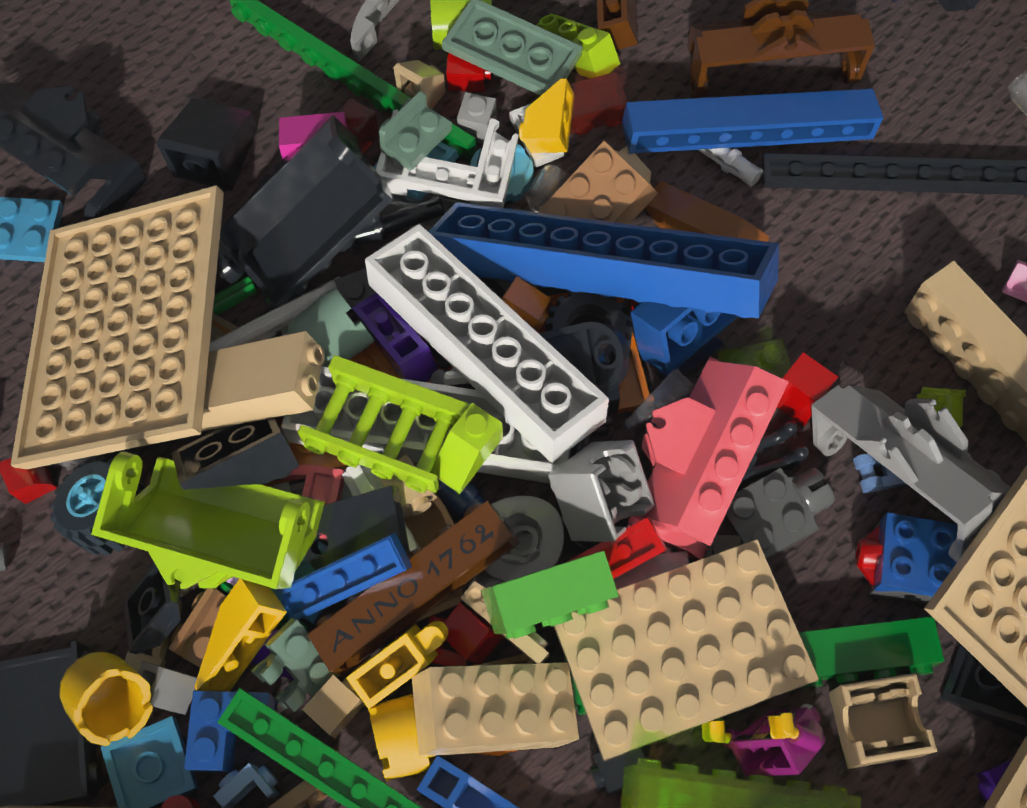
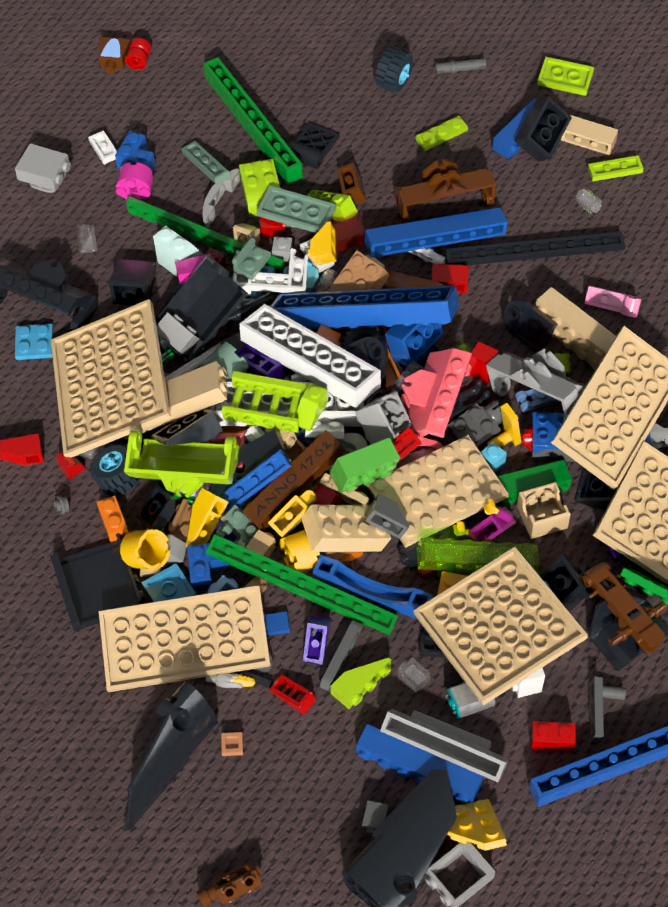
camera: 10 degrees left, 10 degrees down
(76, 605) = (112, 518): none -> orange brick
(155, 51) = (87, 238): none -> clear slope
(261, 253) = (176, 334): none -> light grey brick
(289, 89) = (172, 248): none -> light aqua slope
(495, 487) = (334, 428): none -> white plate
(576, 700) = (387, 516): none -> dark grey slope
(767, 208) = (451, 275): none -> red brick
(798, 586) = (494, 456): none -> medium azure brick
(840, 537) = (511, 428): none -> yellow piece
(899, 324) = (529, 325): none -> black tile

